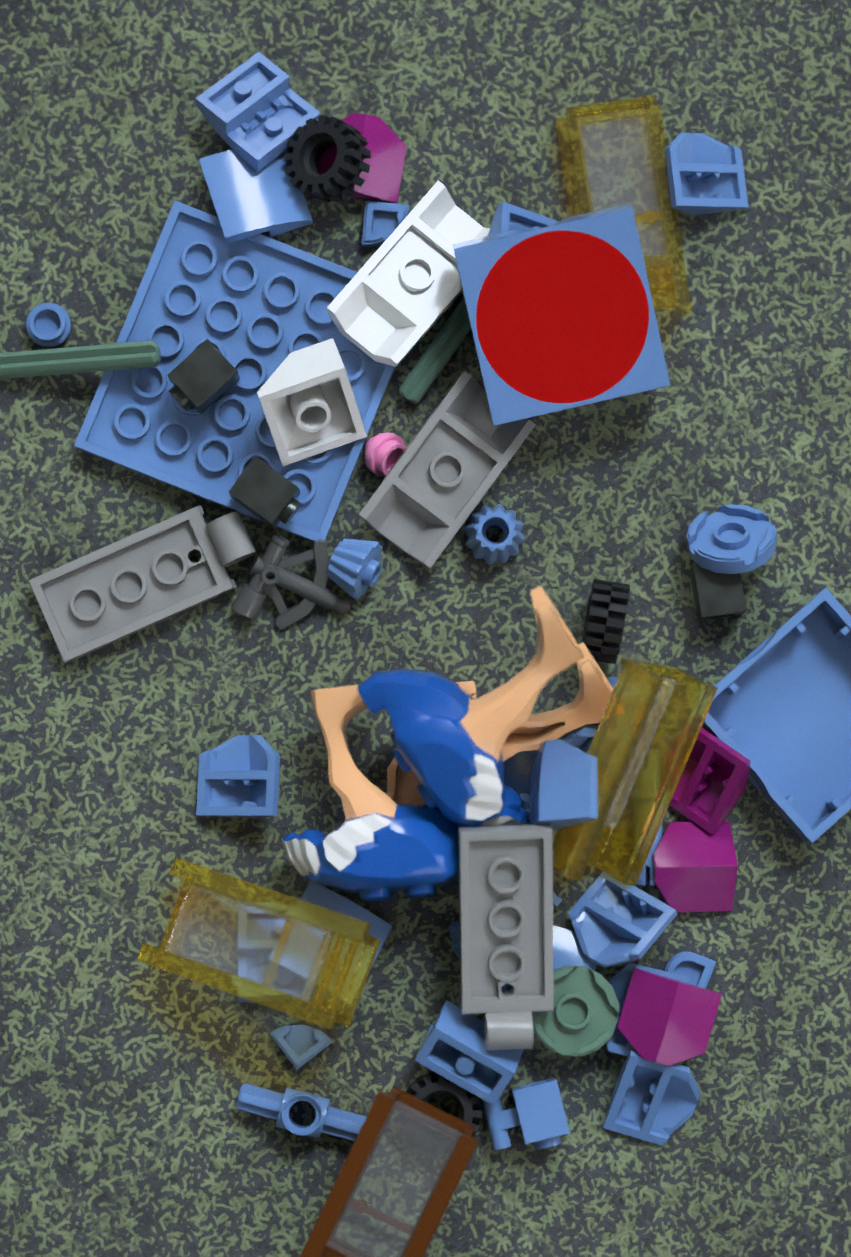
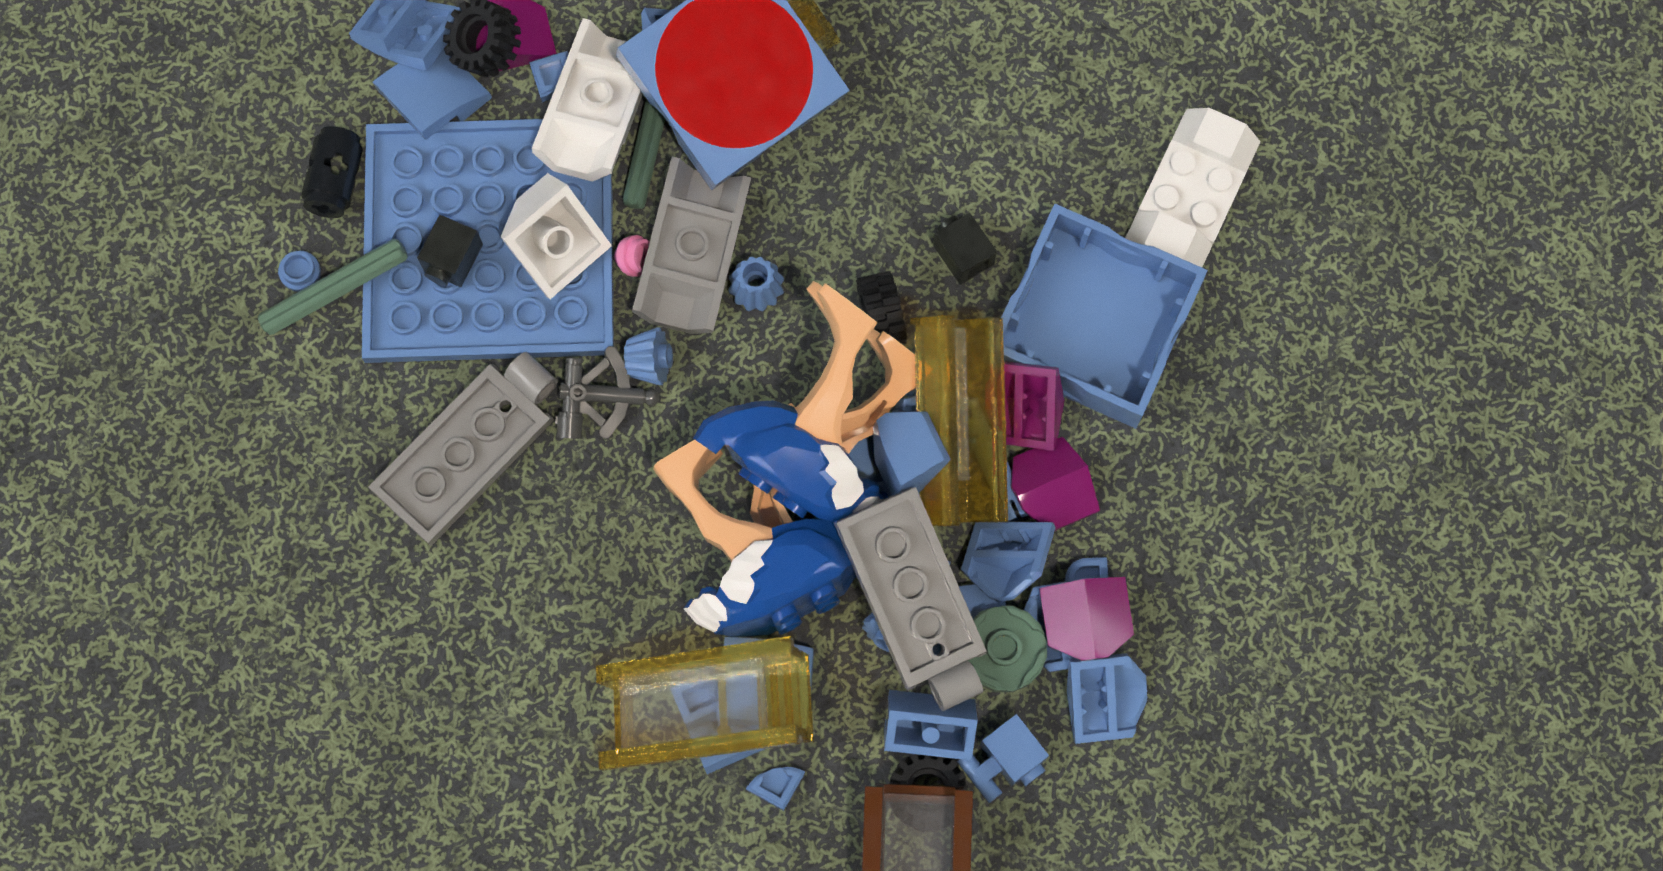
camera: 20 degrees left, 10 degrees down
(102, 252) = (329, 193): none -> black piece
(239, 779) = (625, 580): medium blue slope -> none
(266, 493) = (544, 324): pearl dark grey brick -> none
(278, 1105) = (780, 848): medium blue axle -> none
(731, 539) = (958, 201): medium blue tile -> none

